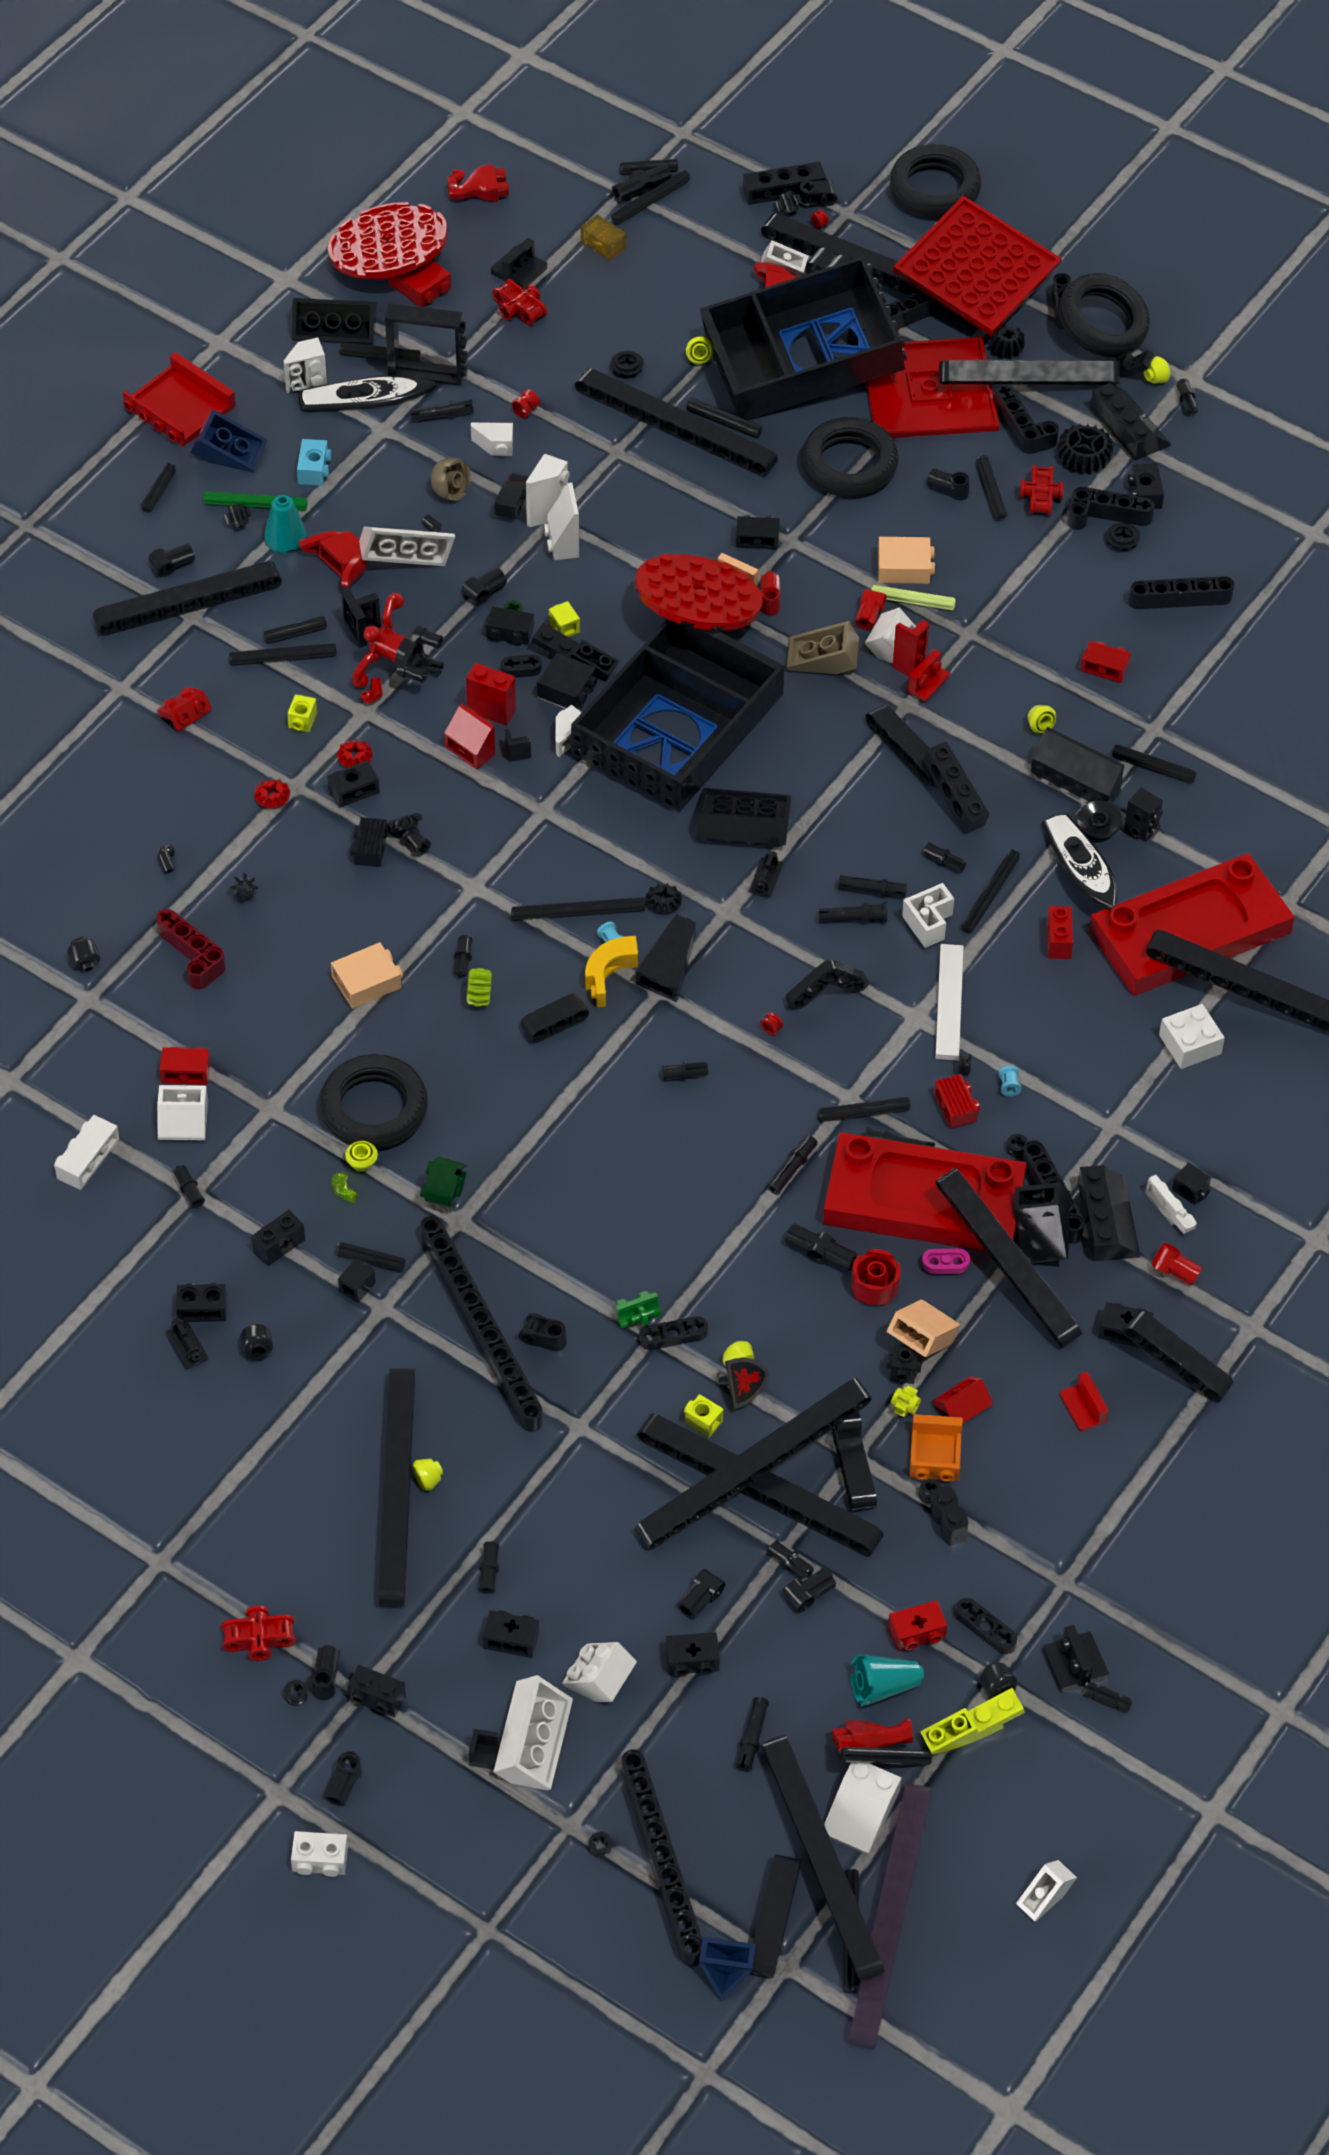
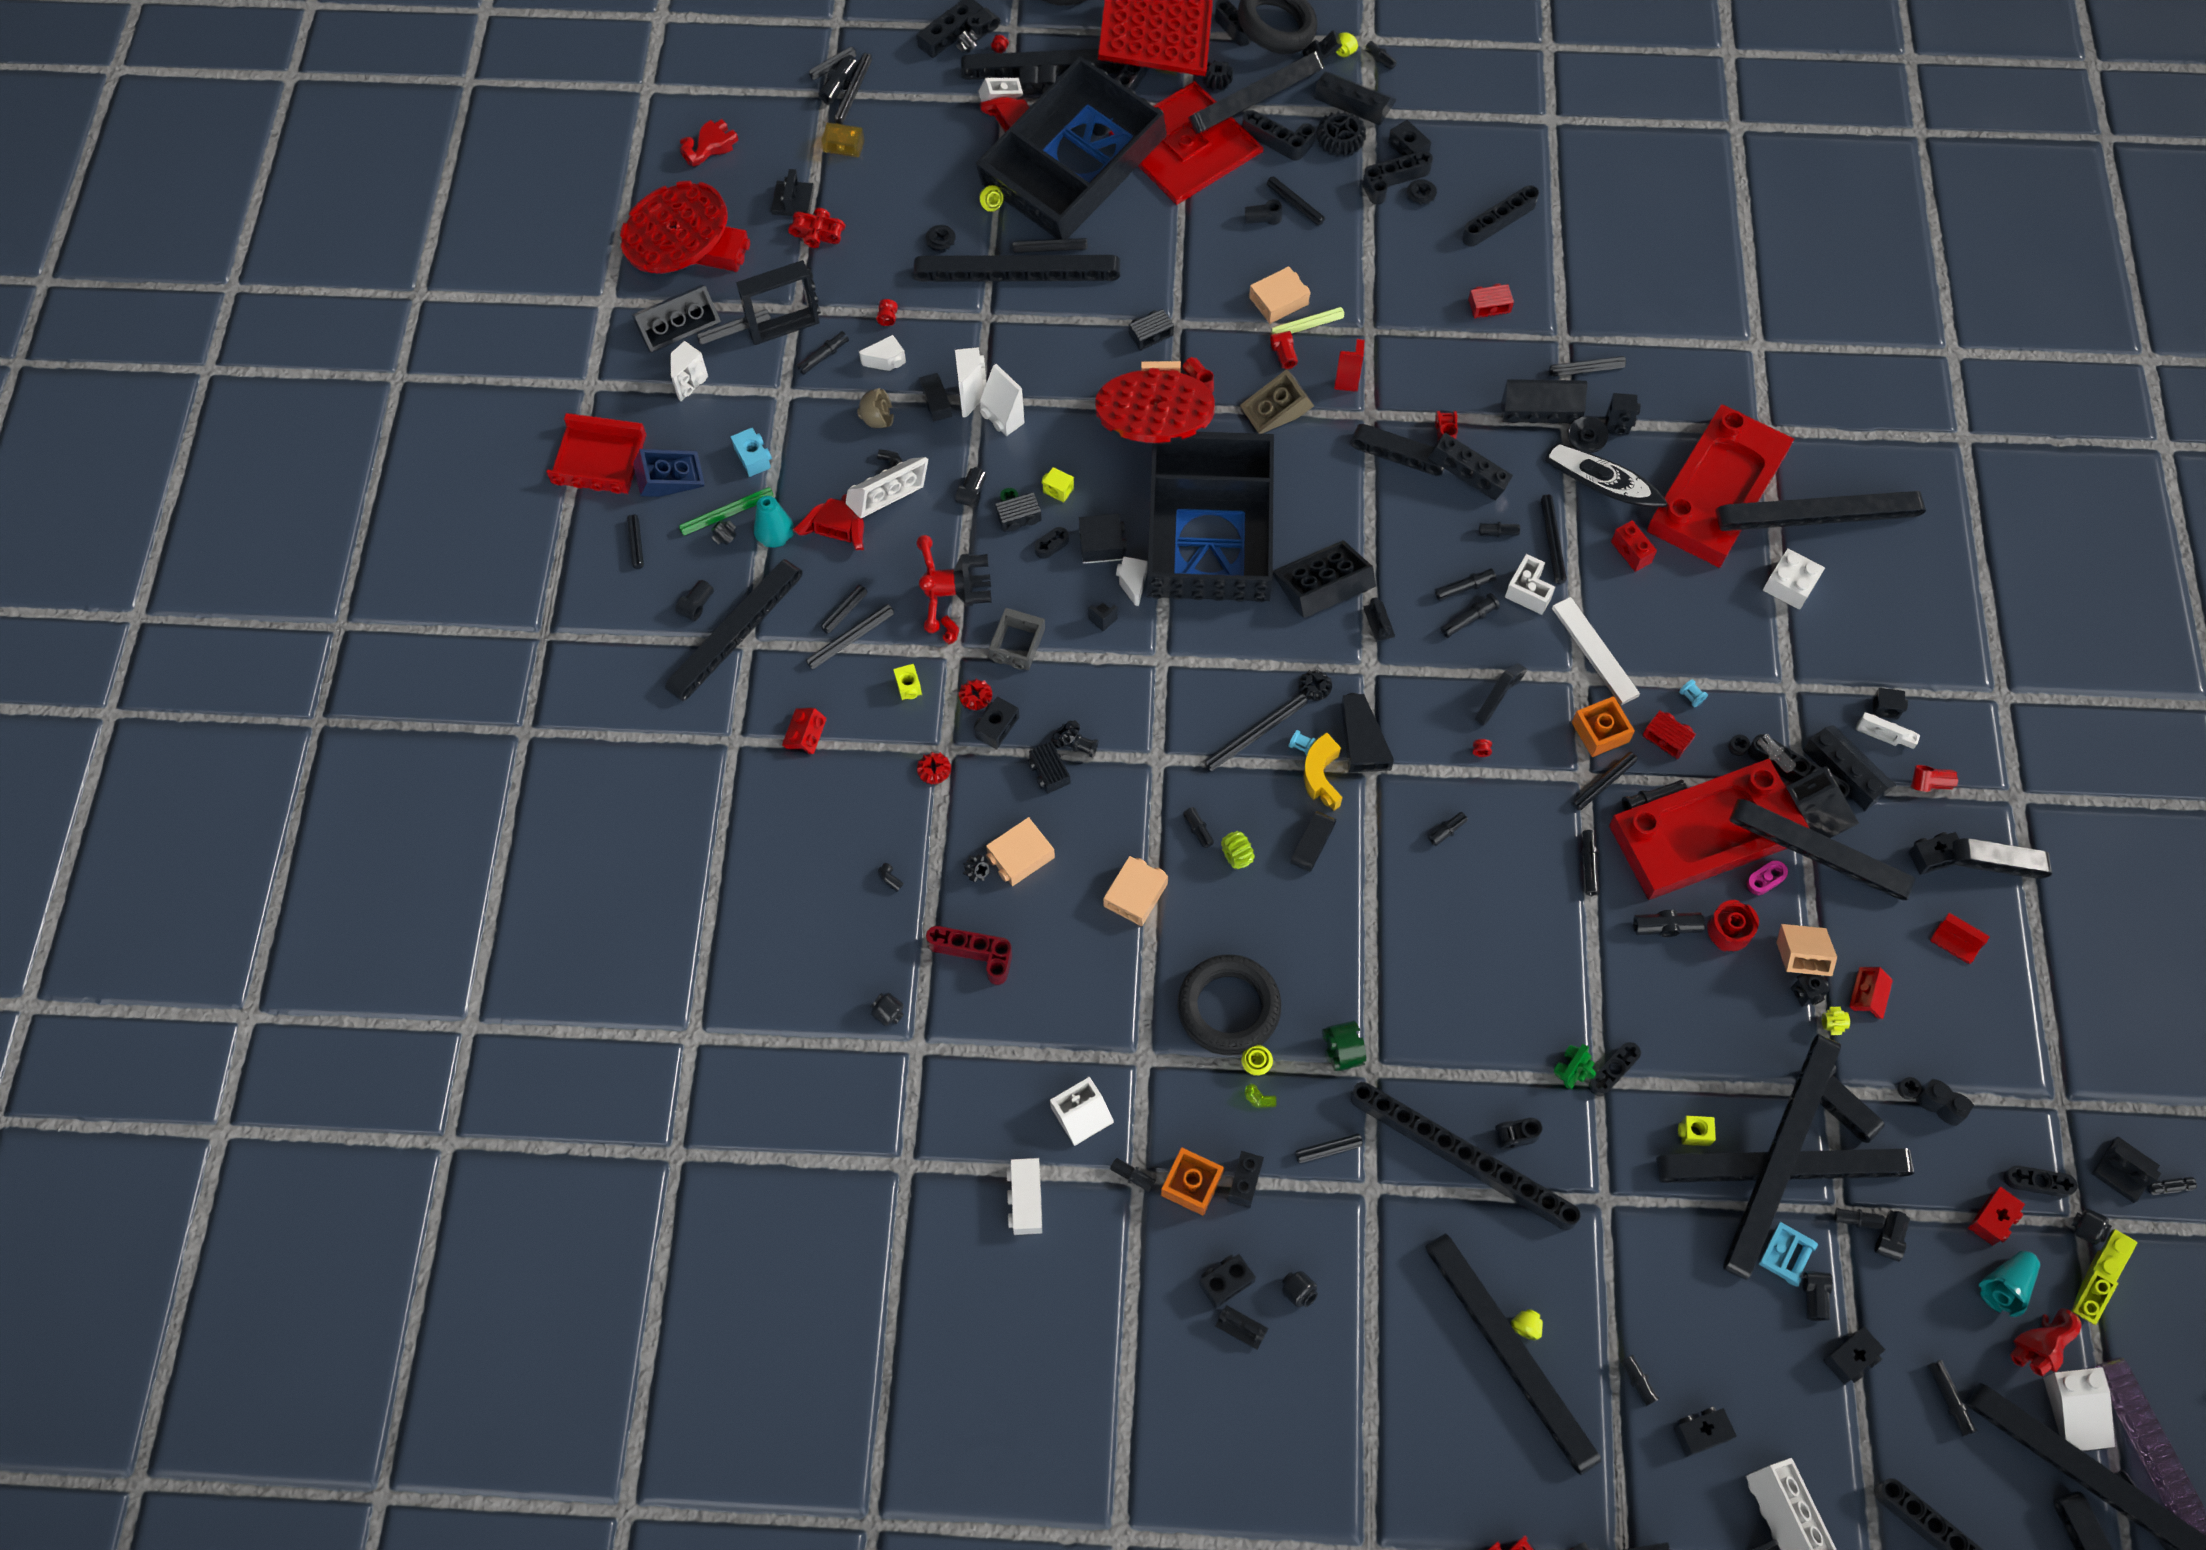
camera: 30 degrees left, 10 degrees up
(185, 1066) = (1049, 1063): red brick -> none
(231, 1213) = (1192, 1181): none -> orange brick
(290, 894) = (1019, 852): none -> light nougat brick
(357, 1280) = (1337, 1178): black brick -> none
(360, 614) = (893, 570): black bracket -> none
(364, 393) = (746, 369): piece -> none
(427, 707) = (1023, 622): none -> dark grey window
(470, 737) = (1064, 628): slope -> none
(491, 693) = (1055, 582): red brick -> none
(556, 642) = (1095, 505): black slope -> none
(600, 1671) = (1797, 1420): white slope -> none
(699, 1543) = (1781, 1249): none -> medium azure plate
(738, 1350) = (1684, 1060): neon yellow cone -> none
(744, 1379) = (1704, 1079): shield -> none
(847, 484) = (1174, 203): black tyre -> none
(883, 634) = (1319, 363): white slope -> none
(886, 1755) = (2074, 1354): black axle -> none
(895, 1061) = (1603, 726): none -> orange brick
(927, 676) = (1373, 384): red bracket -> none
(936, 1447) = (1886, 1049): orange panel -> none
(964, 1063) = (1650, 697): black bush -> none
(969, 748) = (1446, 424): none -> red piece
(1035, 1159) = (1777, 753): none -> clear axle
(1041, 489) = (1335, 184): red axle -> none
(1041, 717) = (1481, 373): neon yellow cone -> none

